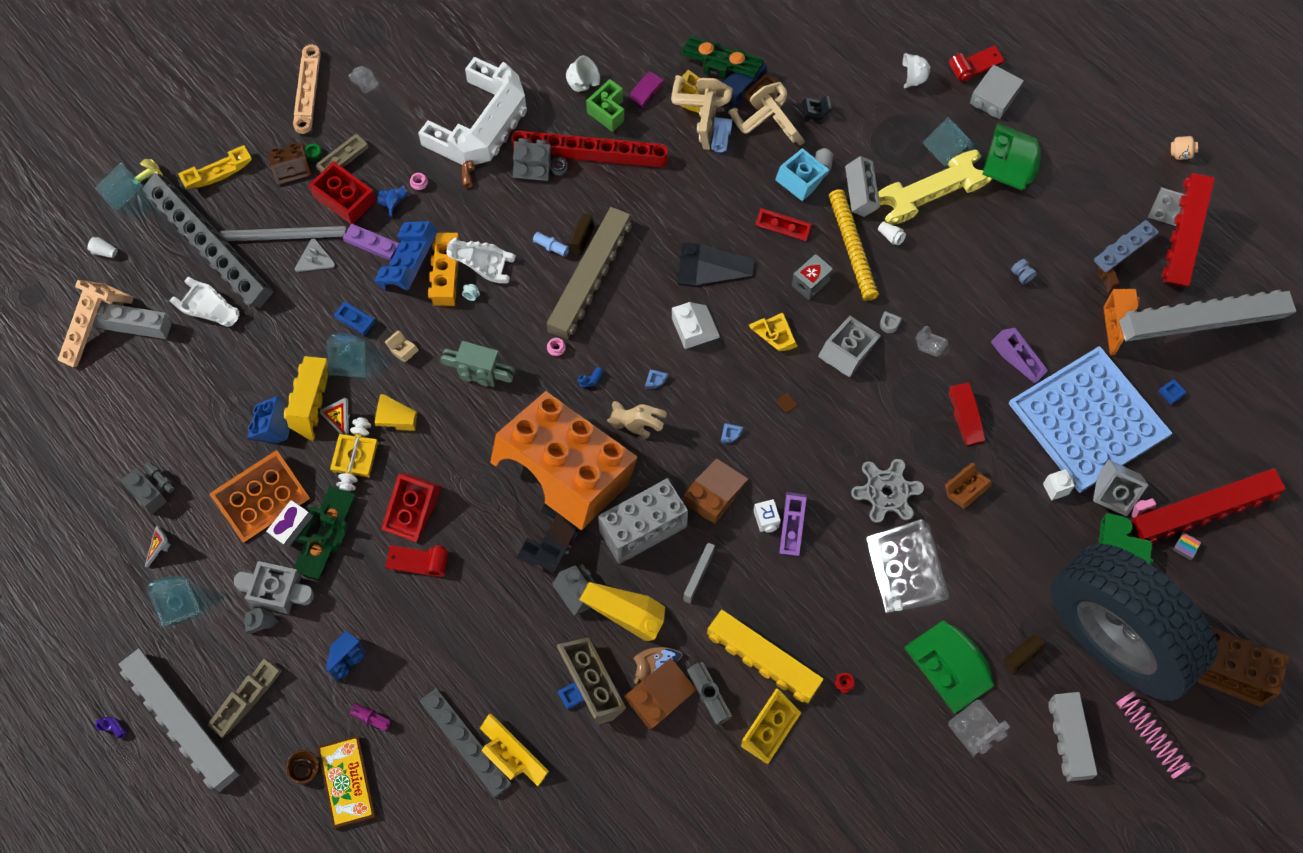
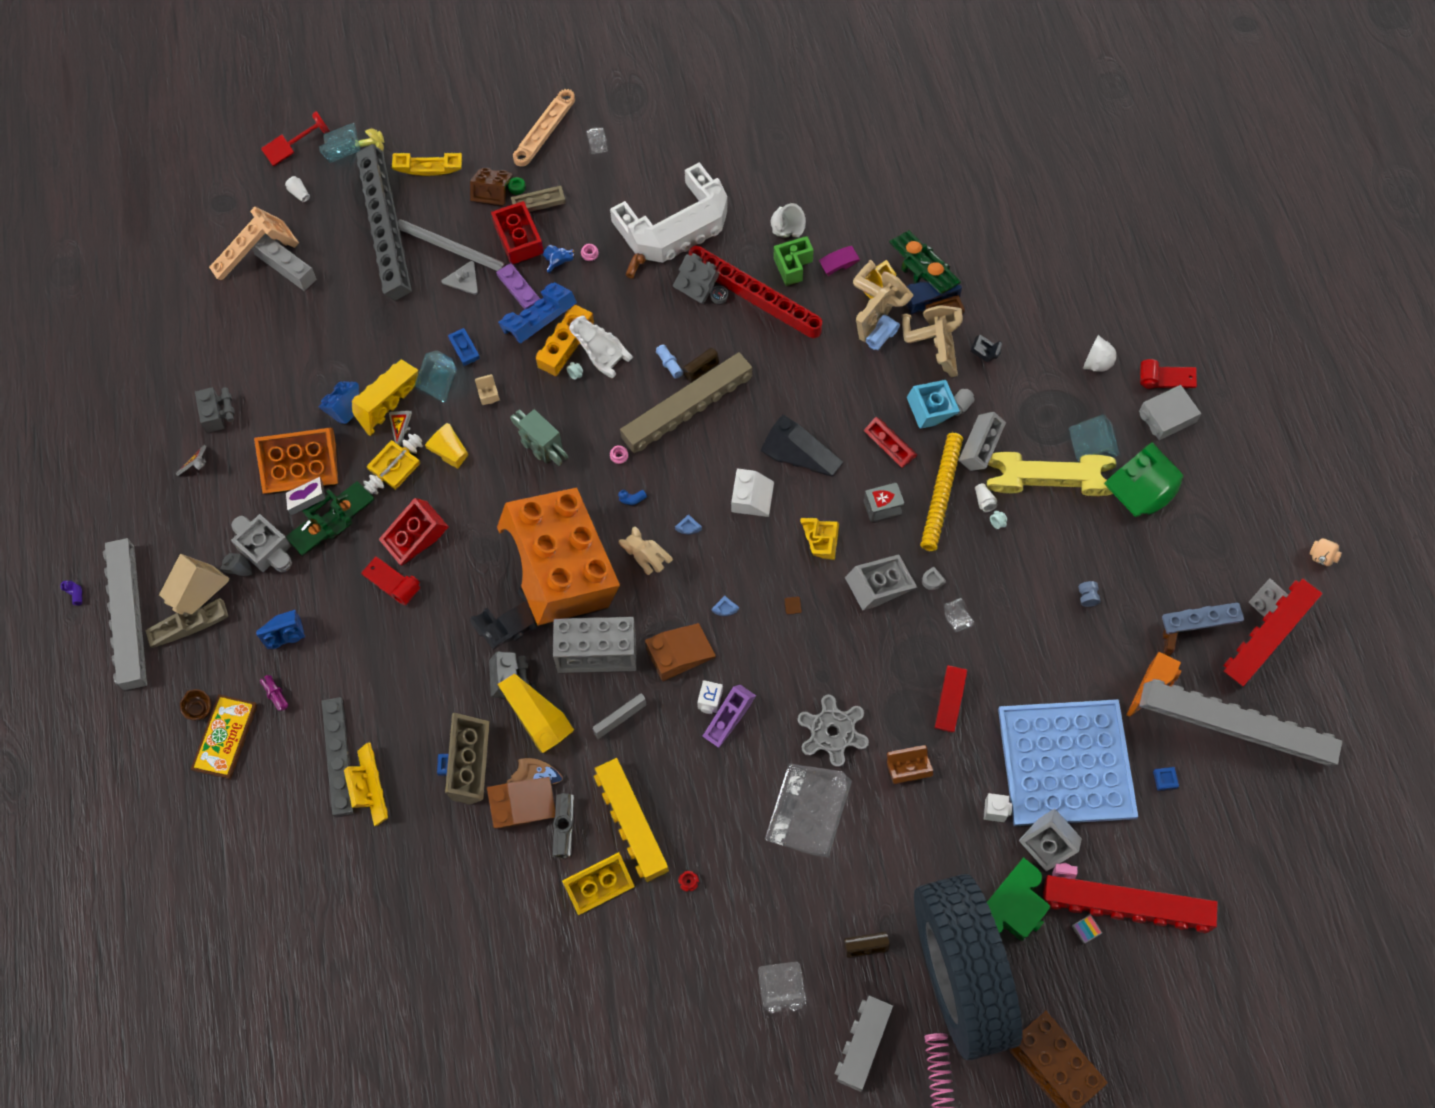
camera: 30 degrees right, 0 degrees up
(60, 219) = (280, 149): none -> red piece
(173, 599) = (178, 512): clear light blue slope -> none
(205, 303) = (351, 276): white animal -> none
(230, 659) = (191, 584): none -> tan slope
(913, 246) = (998, 519): none -> light aqua plate
(952, 664) = (796, 918): green slope -> none
(1019, 354) = (1036, 669): medium lavender slope -> none

